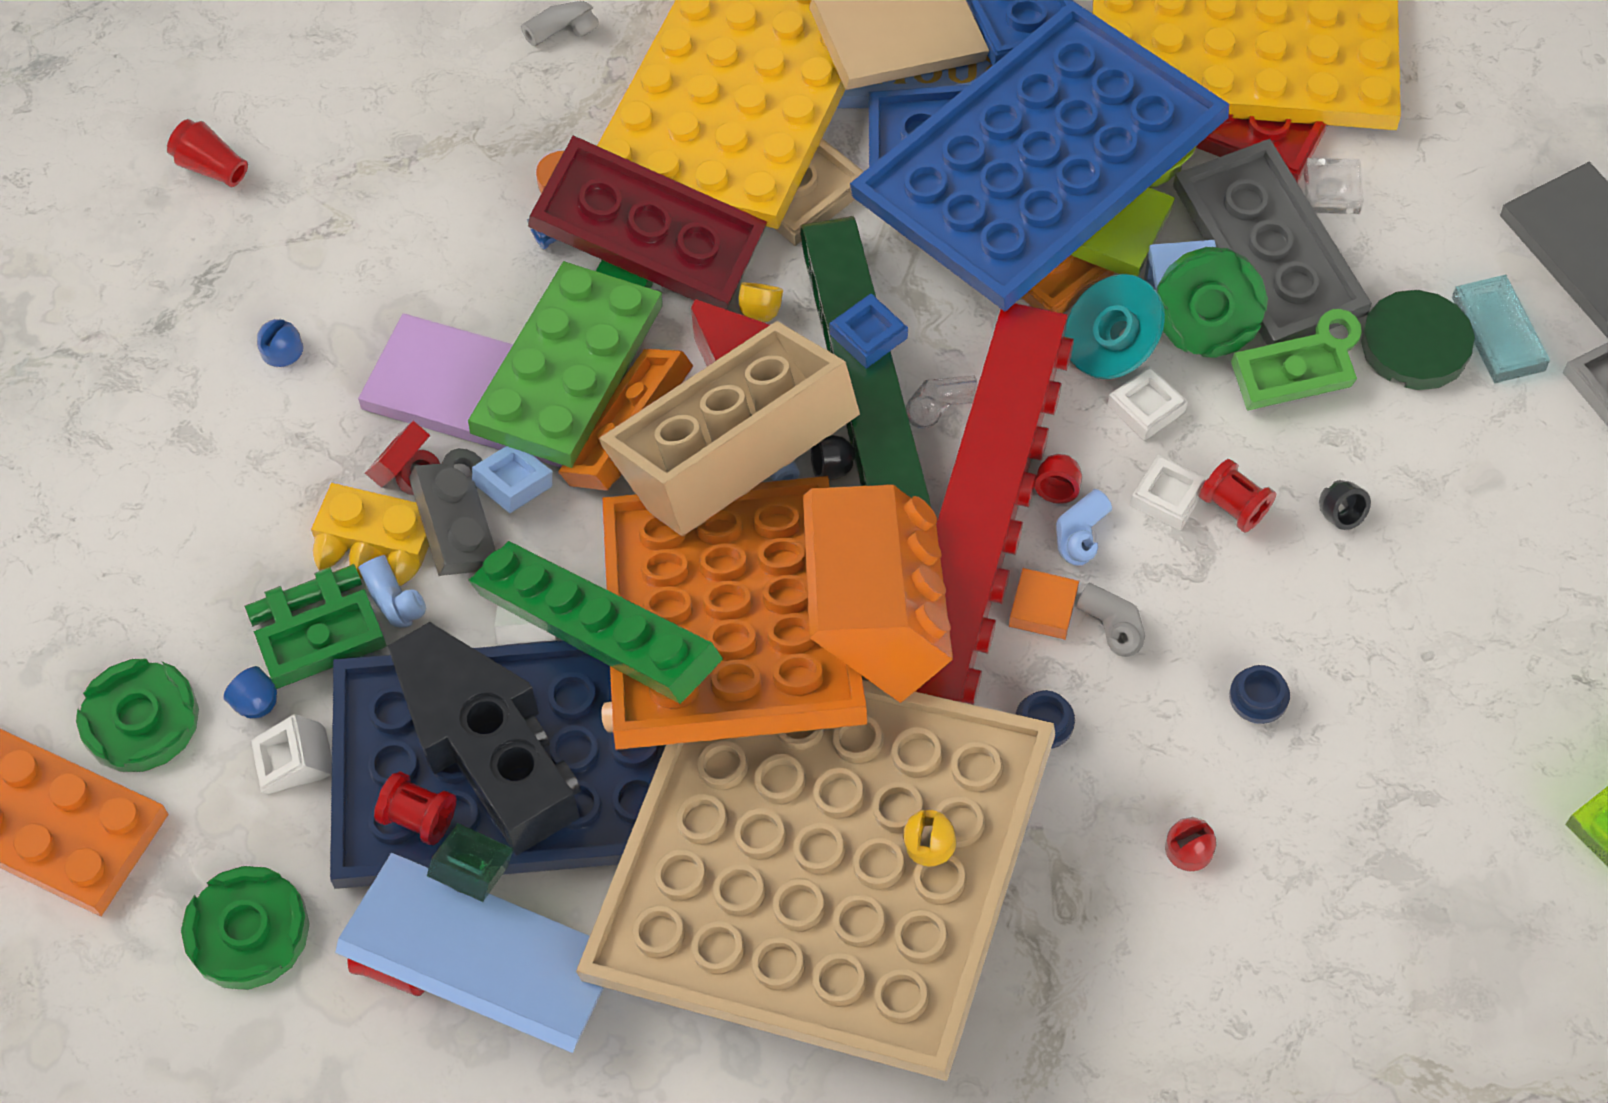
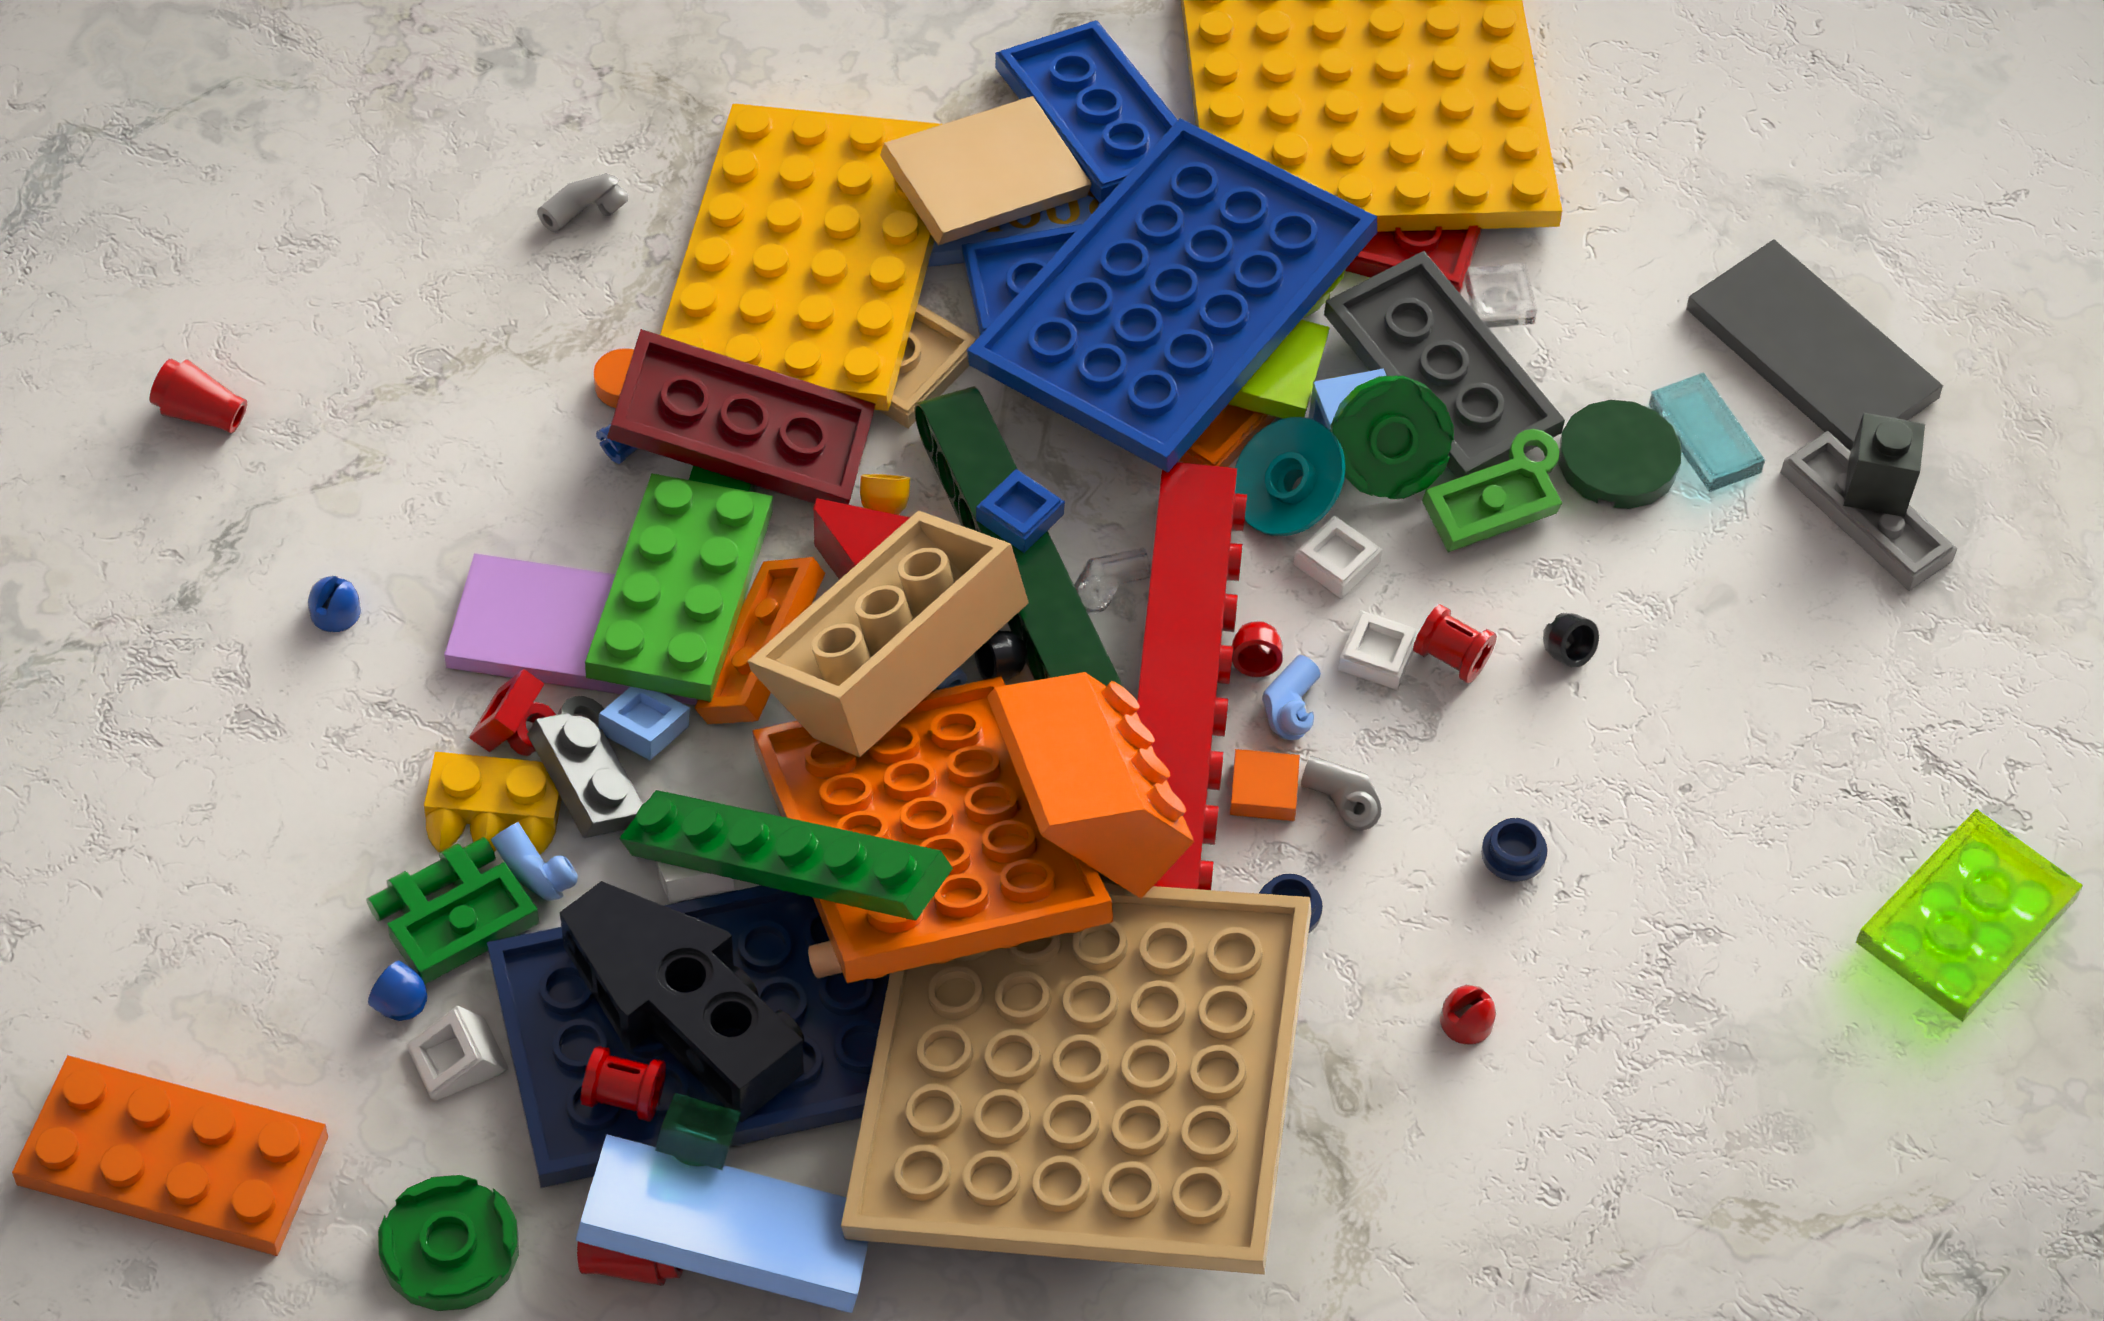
camera: 15 degrees left, 5 degrees down
(137, 715) = (268, 1034): green tile -> none
(942, 838) = (1216, 1031): yellow hinge -> none

